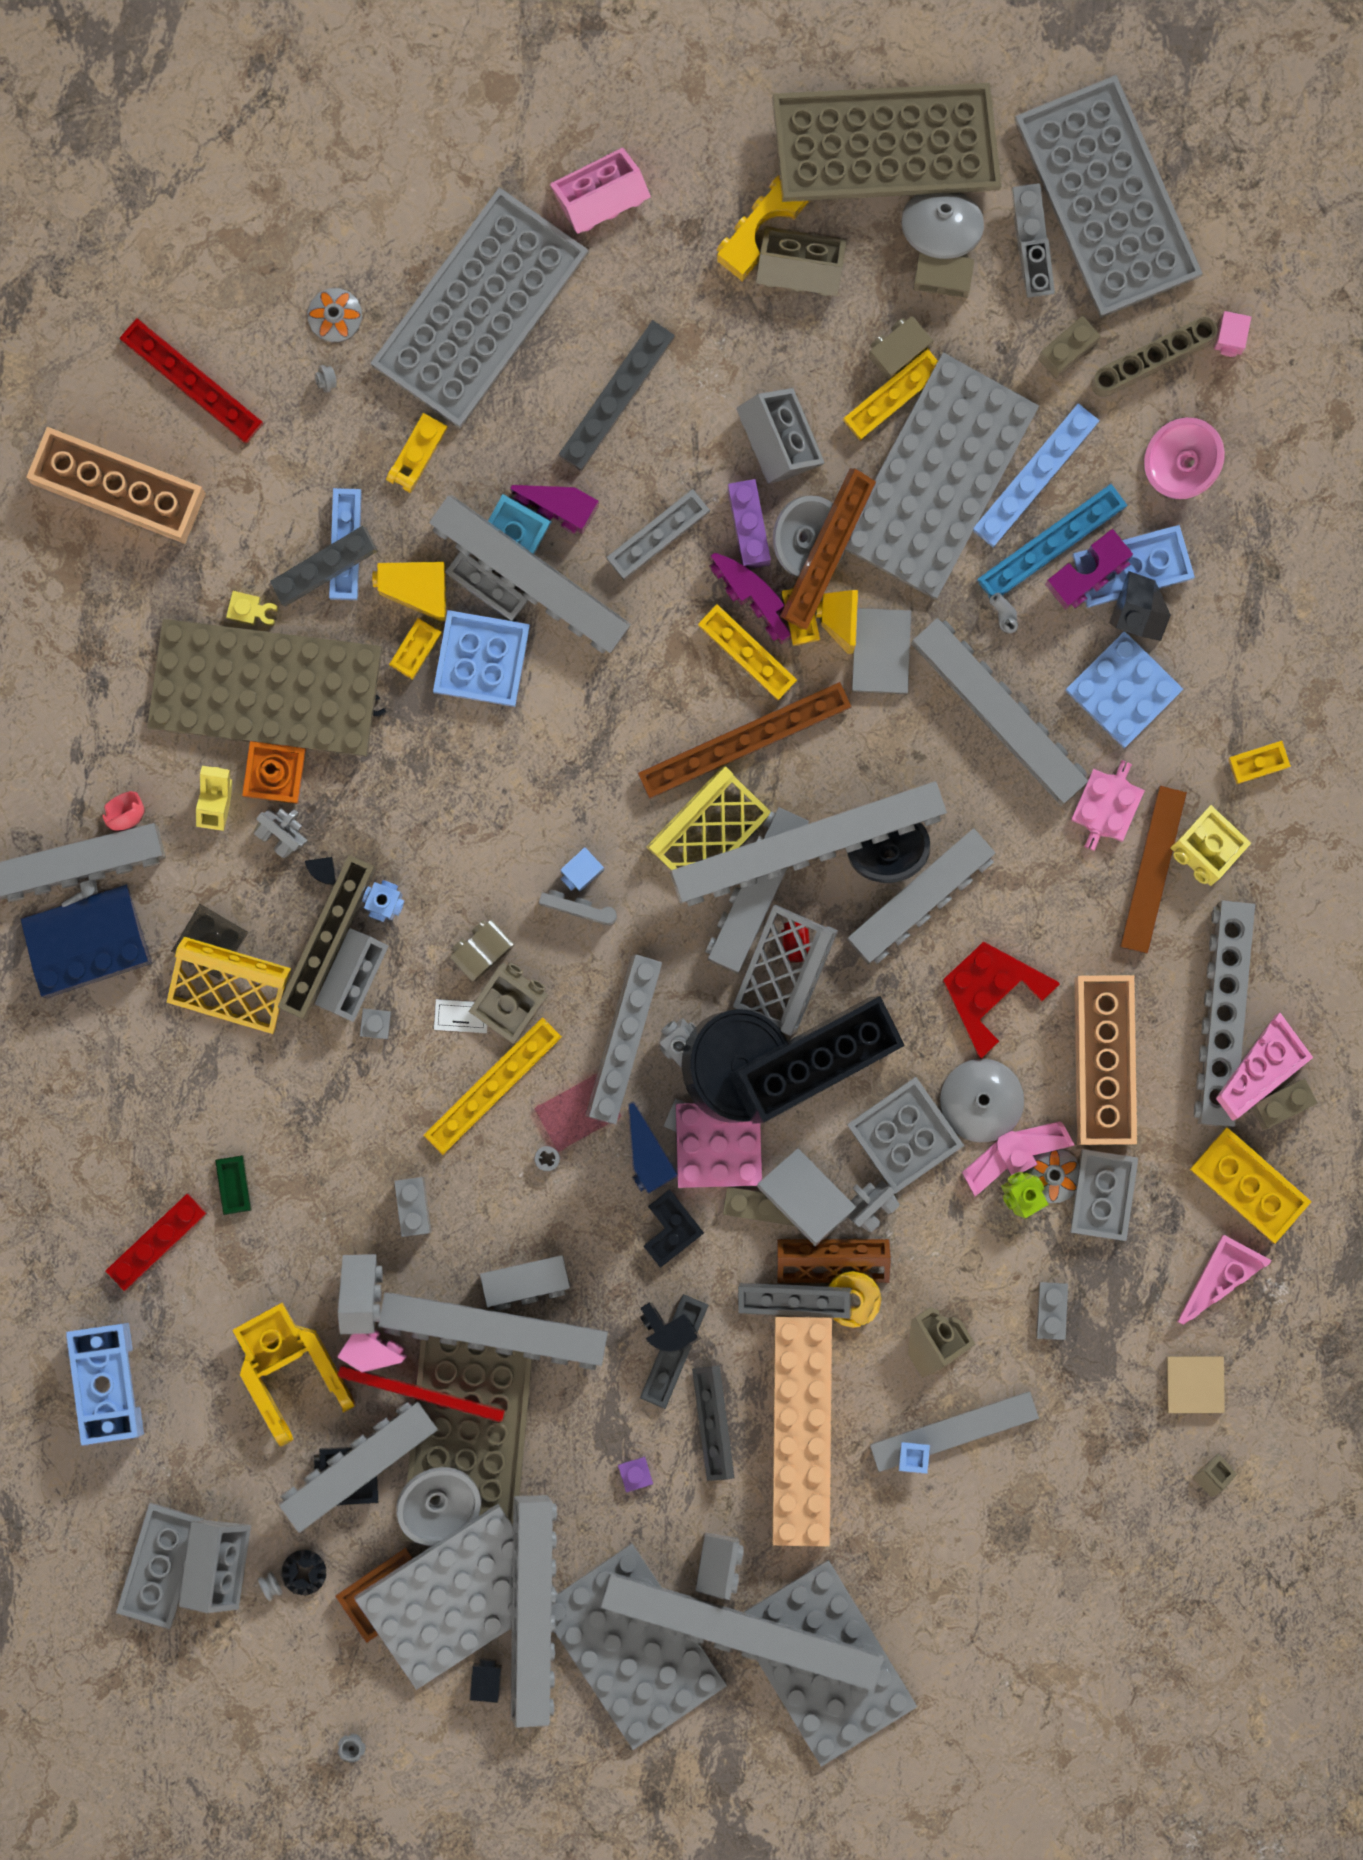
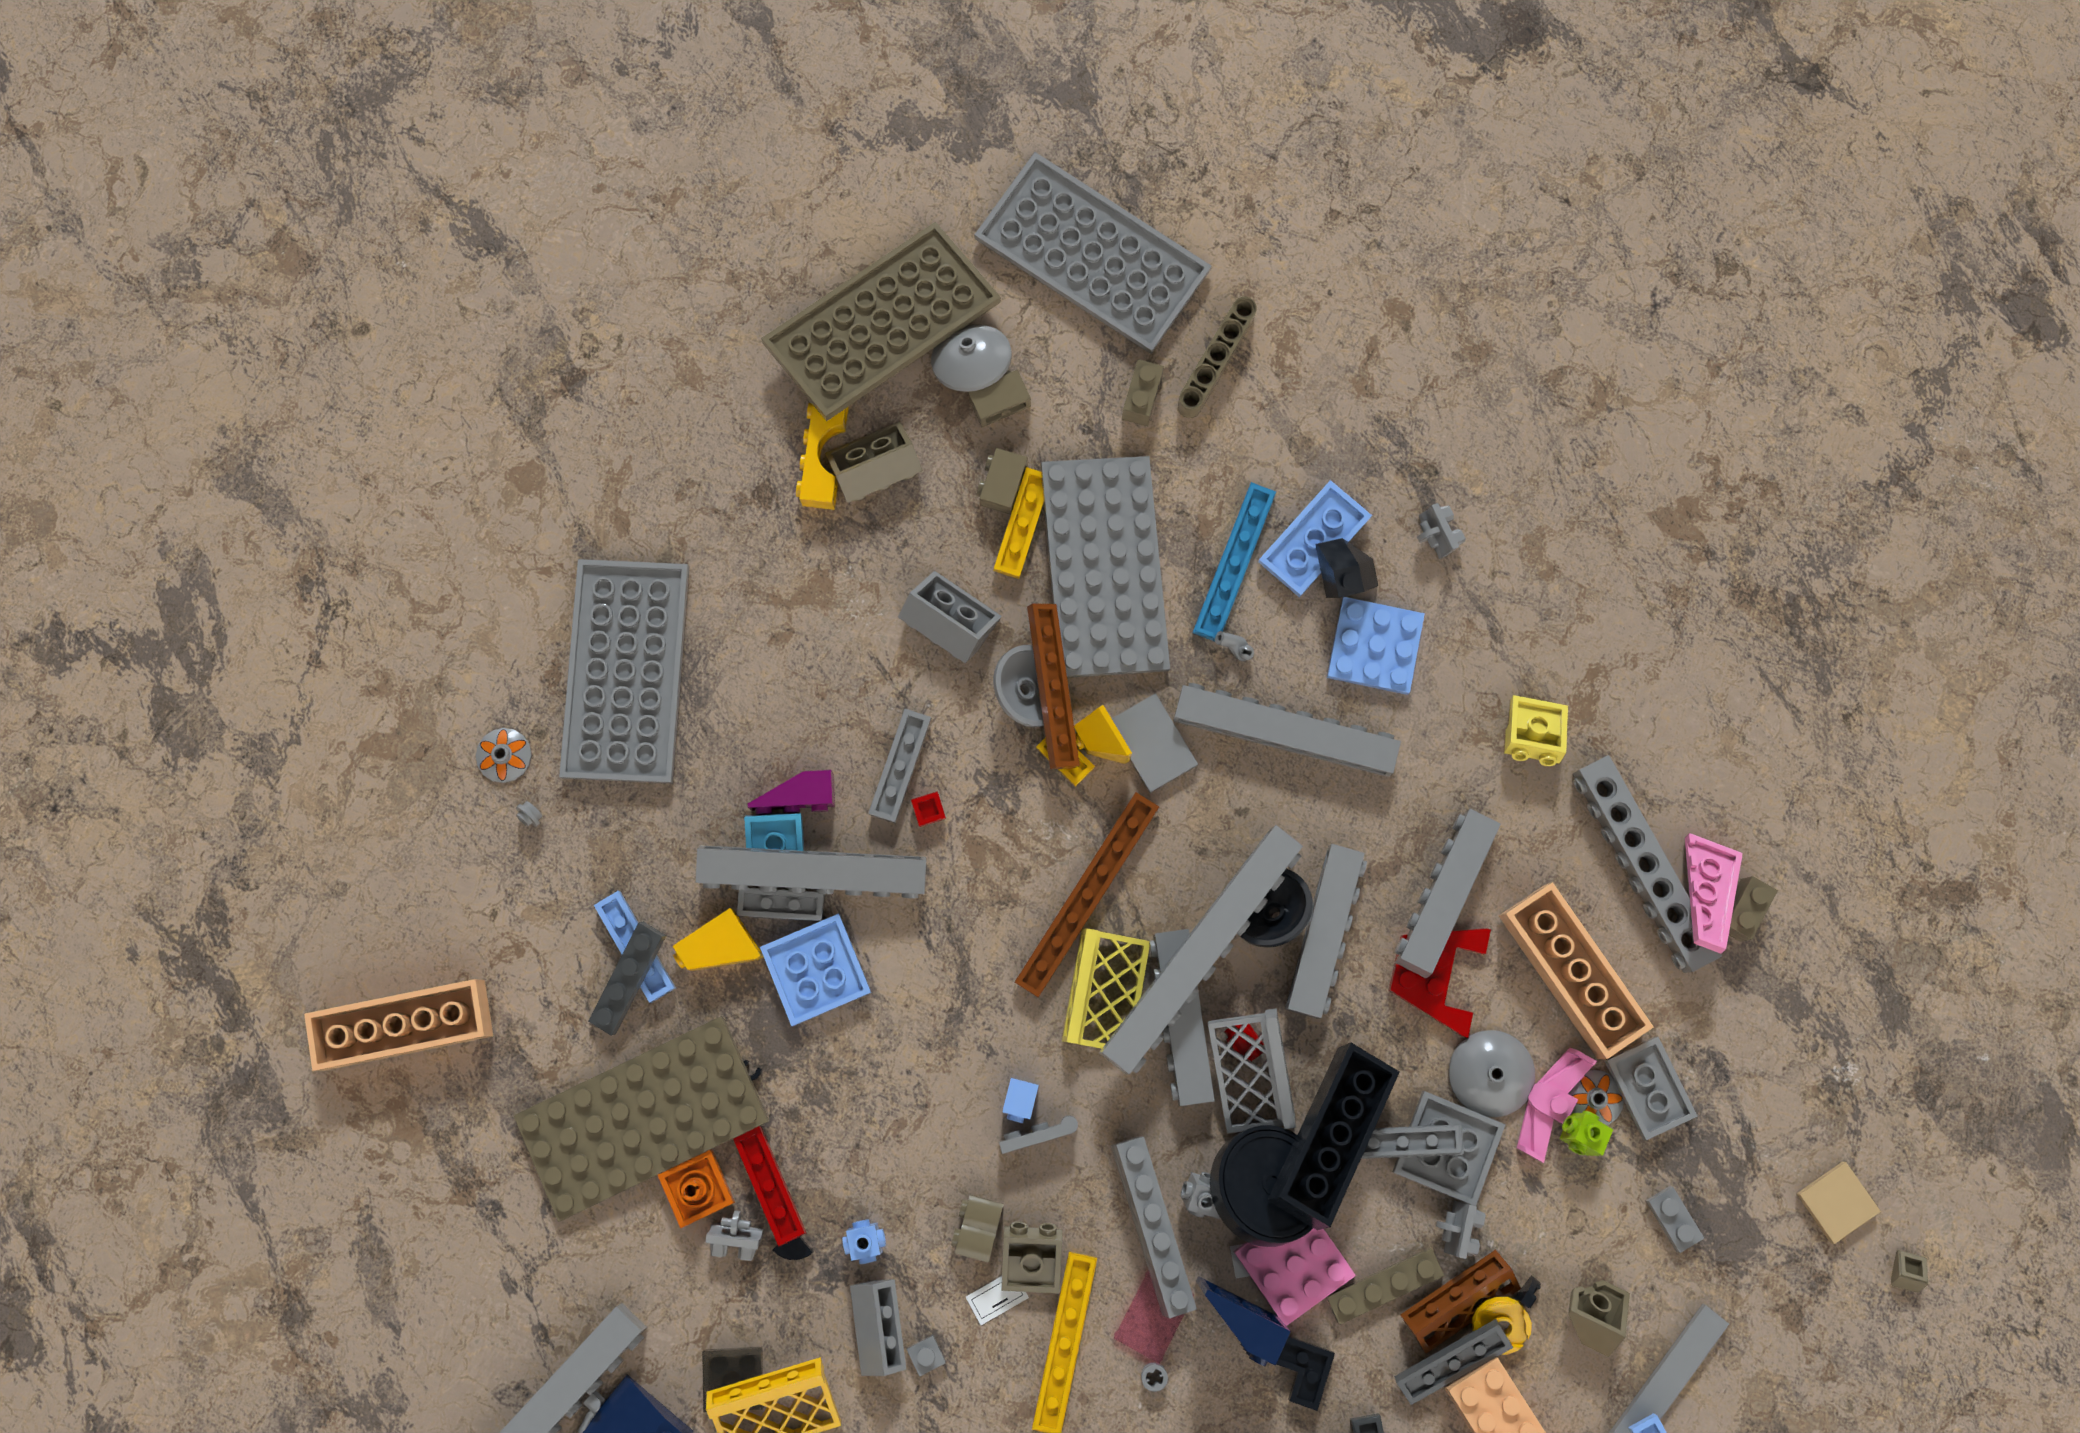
camera: 30 degrees left, 5 degrees down
(123, 811) = (583, 1312): coral hair -> none
(191, 380) = (412, 890): red tile -> none
(213, 798) = (657, 1248): light yellow brick -> none
(247, 608) = (582, 1057): light yellow plate -> none
(327, 937) = (835, 1309): dark tan brick -> none
(335, 808) = (769, 1186): none -> red plate
(415, 648) = (752, 998): yellow plate -> none
(417, 452) = (648, 827): yellow plate -> none
(600, 190) = (667, 508): bright pink slope -> none
(616, 395) = (789, 671): dark grey plate -> none
(658, 586) = (928, 809): none -> red plate
(746, 586) = (1002, 761): magenta slope -> none
(747, 652) = (1040, 817): yellow plate -> none
(749, 524) = (972, 708): medium lavender brick -> none
(806, 1197) = (1402, 1261): light grey tile -> none
(876, 1108) = (1415, 1142): none -> light grey tile
(893, 1289) = (1526, 1293): none -> black tile
(1032, 240) = (1054, 325): light grey slope -> none
(1035, 475) = (1184, 515): light blue plate -> none
(1043, 929) = (1447, 893): none -> light grey brick
(1107, 805) = (1428, 751): bright pink plate -> none
(1110, 556) = (1276, 587): magenta arch -> none
(1153, 869) = (1501, 781): dark orange tile -> none
(1174, 448) = (1283, 420): bright pink dish -> none
(1225, 1270) = (1795, 1087): bright pink wing -> none
(1232, 333) = (1269, 298): bright pink brick -> none
(1240, 627) = (1438, 532): none -> light grey hips
(1250, 1185) = (1766, 997): yellow plate -> none
(1259, 762) = (1528, 634): yellow plate -> none

